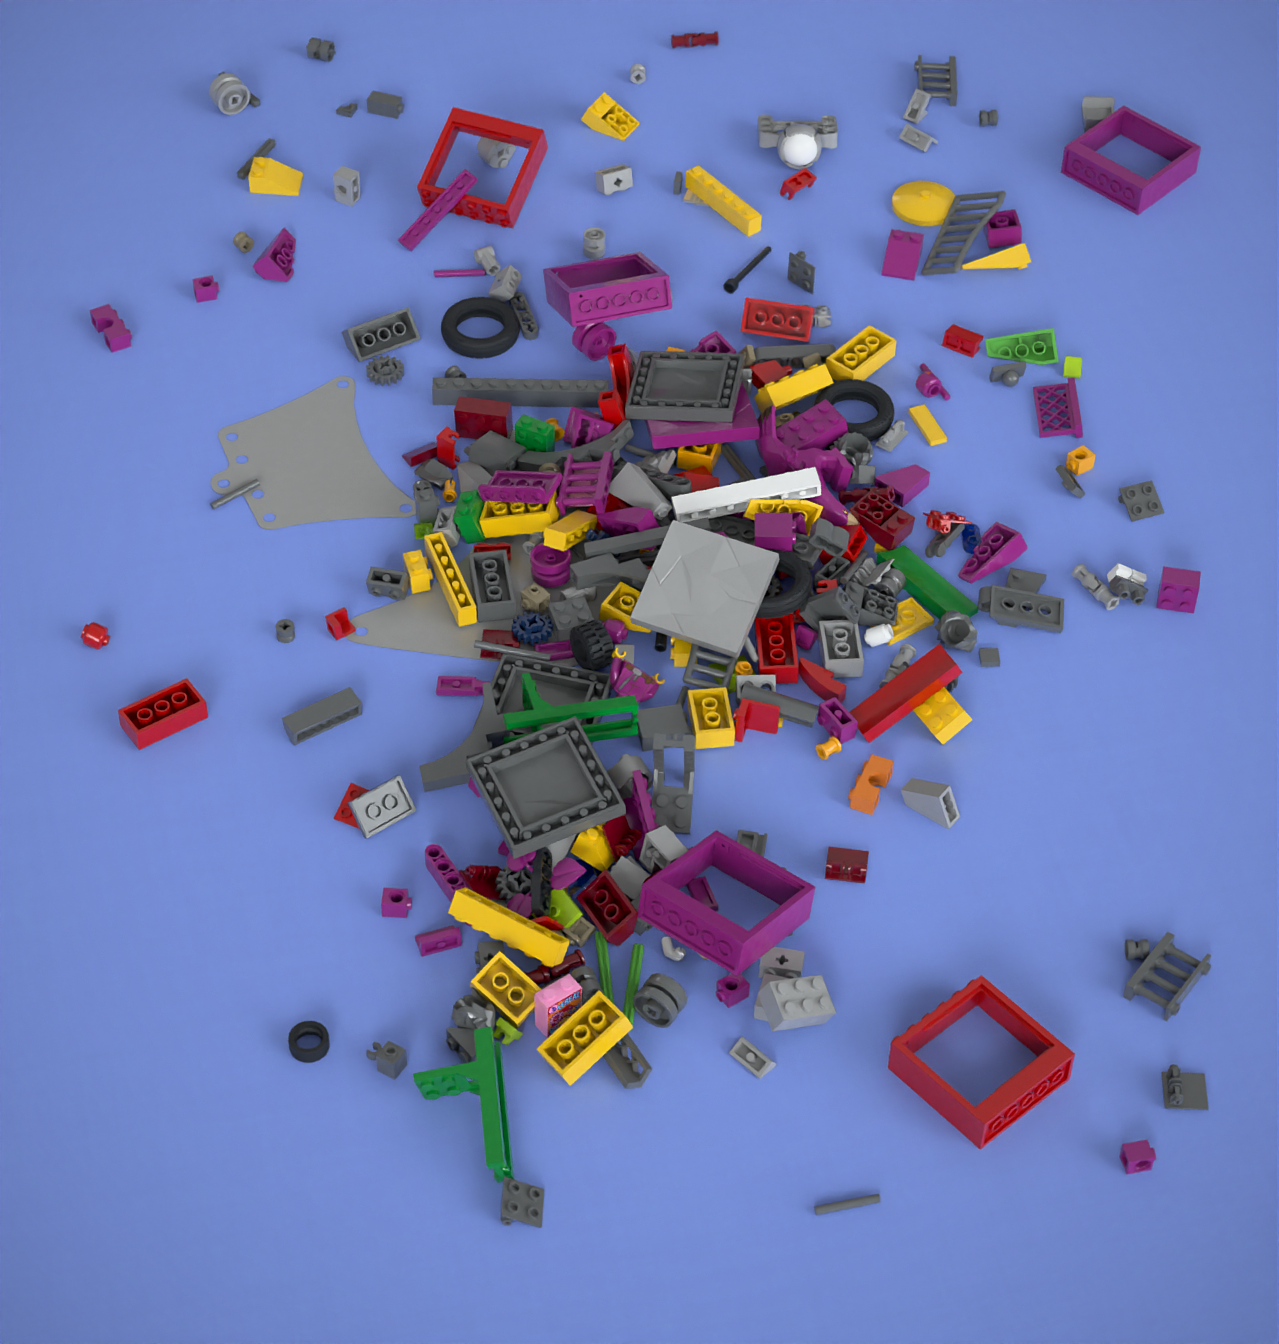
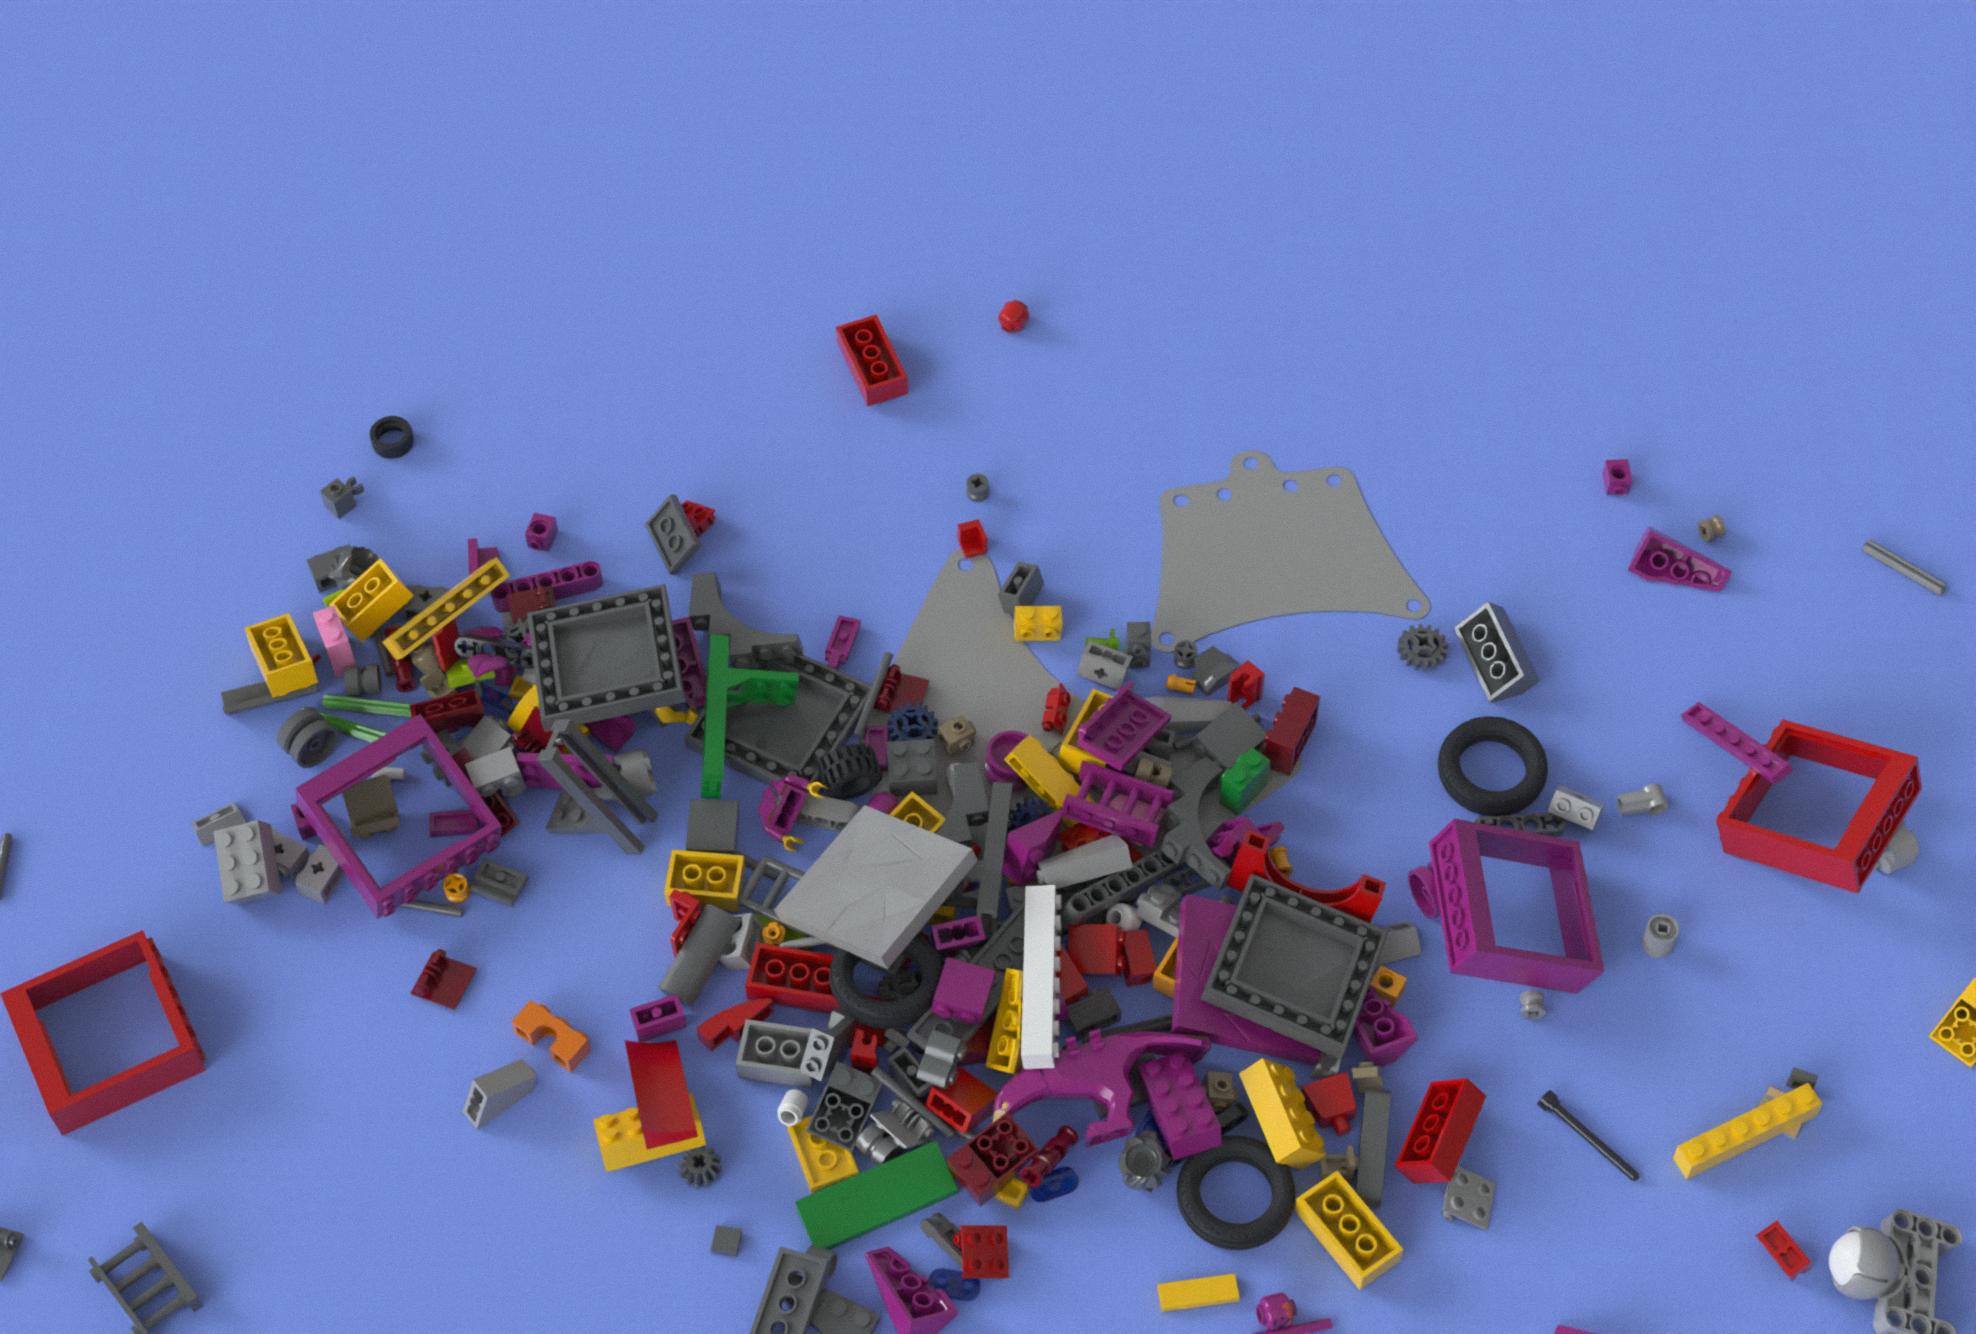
camera: 105 degrees right, 10 degrees up
(115, 333) = (1535, 381): magenta arch -> none
(234, 494) = (1224, 469): dark grey bar -> none
(274, 178) = (1852, 579): yellow slope -> none
(322, 716) = (831, 502): dark grey brick -> none
(346, 186) = (1814, 651): light grey brick -> none
(421, 454) = (1258, 657): dark red slope -> none
(450, 579) = (1012, 652): yellow brick -> none
(454, 372) = (1398, 723): dark grey wheel -> none
(458, 273) = (1624, 764): magenta bar -> none
(467, 516) = (1108, 677): green brick -> none
(489, 1084) = (272, 539): green piece -> none
(492, 586) = (989, 692): dark grey brick -> none
(520, 391) = (1350, 787): dark grey brick -> none
(521, 1203) = (127, 580): dark grey hinge -> none
(559, 431) = (1273, 815): light orange bush -> none
(614, 179) = (1810, 990): light grey brick -> none
(800, 523) = (990, 1036): magenta cone -> none
(801, 272) = (1560, 1191): dark grey hinge -> none
(805, 637) = (819, 1020): magenta tile -> none
(829, 747) = (624, 1002): light orange bush -> none
(861, 473) = (1097, 1160): dark grey brick -> none
(892, 436) = (1178, 1235): light grey hinge -> none
(899, 664) = (736, 1120): light grey piece -> none
(905, 481) = (1073, 1220): magenta slope -> none
(956, 631) = (768, 1200): dark grey hair -> none
(1136, 949) = (196, 1261): dark grey wheel -> none

